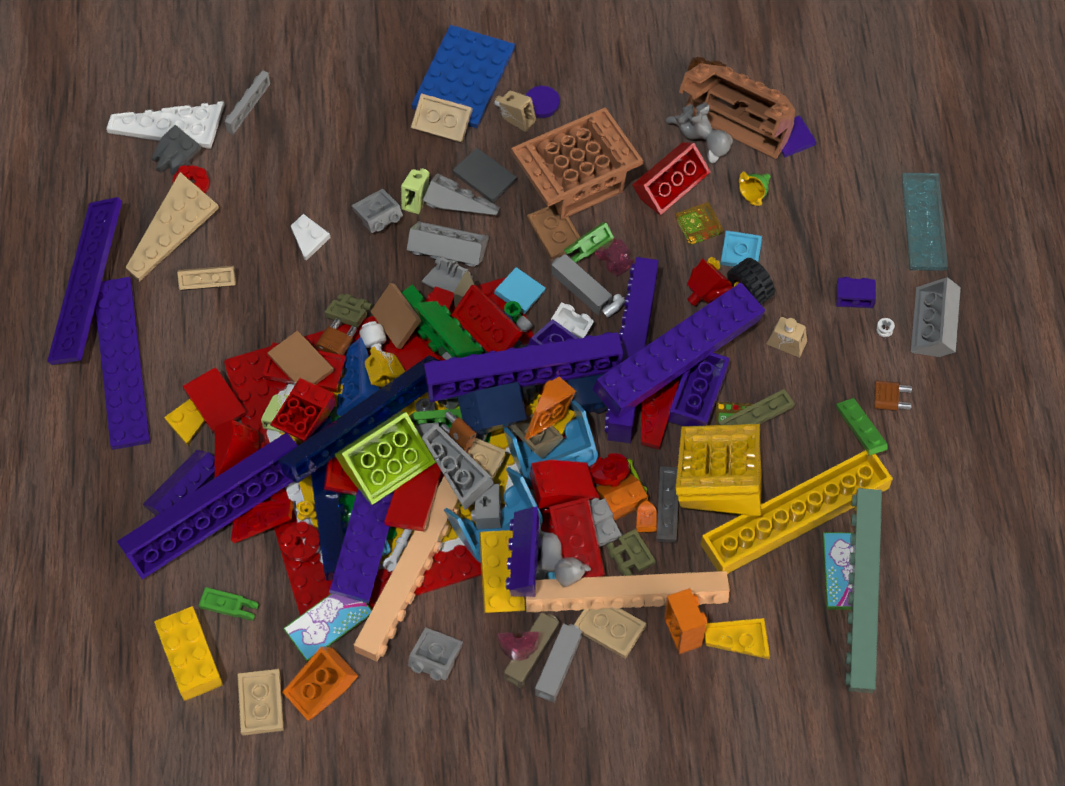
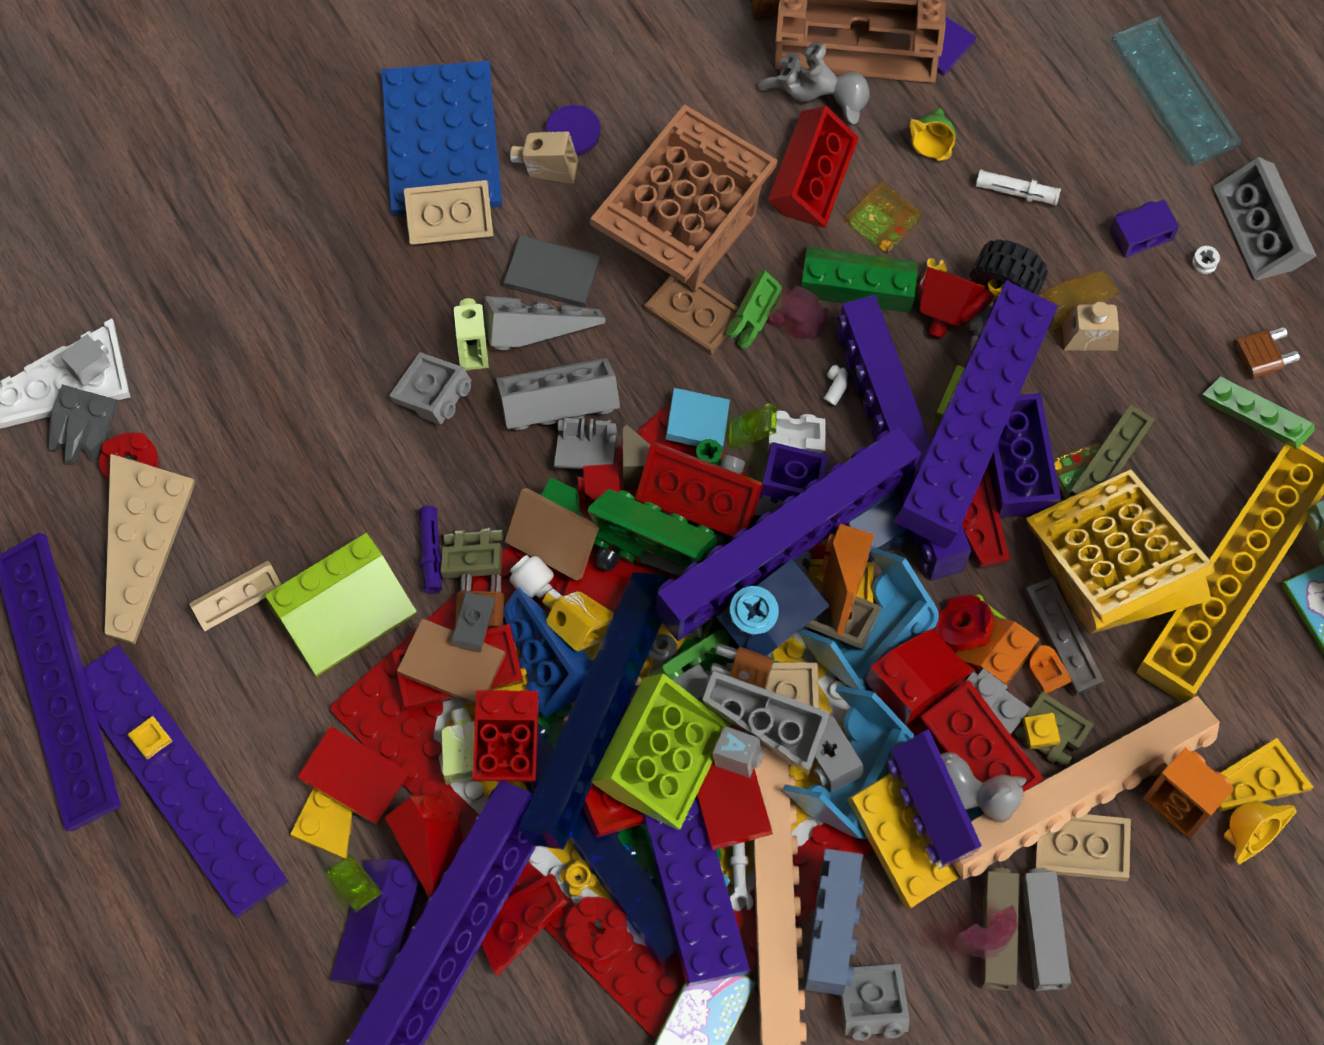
camera: 30 degrees left, 5 degrees up
(117, 331) = (150, 737): none -> yellow tile
(181, 456) = (353, 883): none -> clear neon green plate
(195, 116) = (86, 359): none -> light grey brick
(247, 103) = (147, 314): light grey plate -> none
(260, 306) = (340, 604): none -> lime slope
(309, 236) = (350, 467): white wing -> none
(324, 344) = (473, 621): none -> dark grey plate
(327, 298) = (431, 557): none -> dark purple pin
(419, 343) = (606, 559): none -> black hinge
(428, 476) = (738, 752): none -> light grey brick
(434, 597) = (834, 922): none -> sand blue wedge
(481, 392) = (767, 608): none -> medium azure gear
(548, 306) = (752, 426): none -> clear neon green plate
(581, 284) = (775, 373): light grey brick -> none
(620, 549) = (1041, 731): none -> yellow plate
(672, 256) = (853, 276): none -> green slope
(720, 664) = (1255, 826): none -> yellow hat
(739, 247) = (959, 231): medium azure tile -> none
(796, 242) = (1018, 187): none -> white pin
(802, 314) = (1078, 291): none -> clear yellow slope

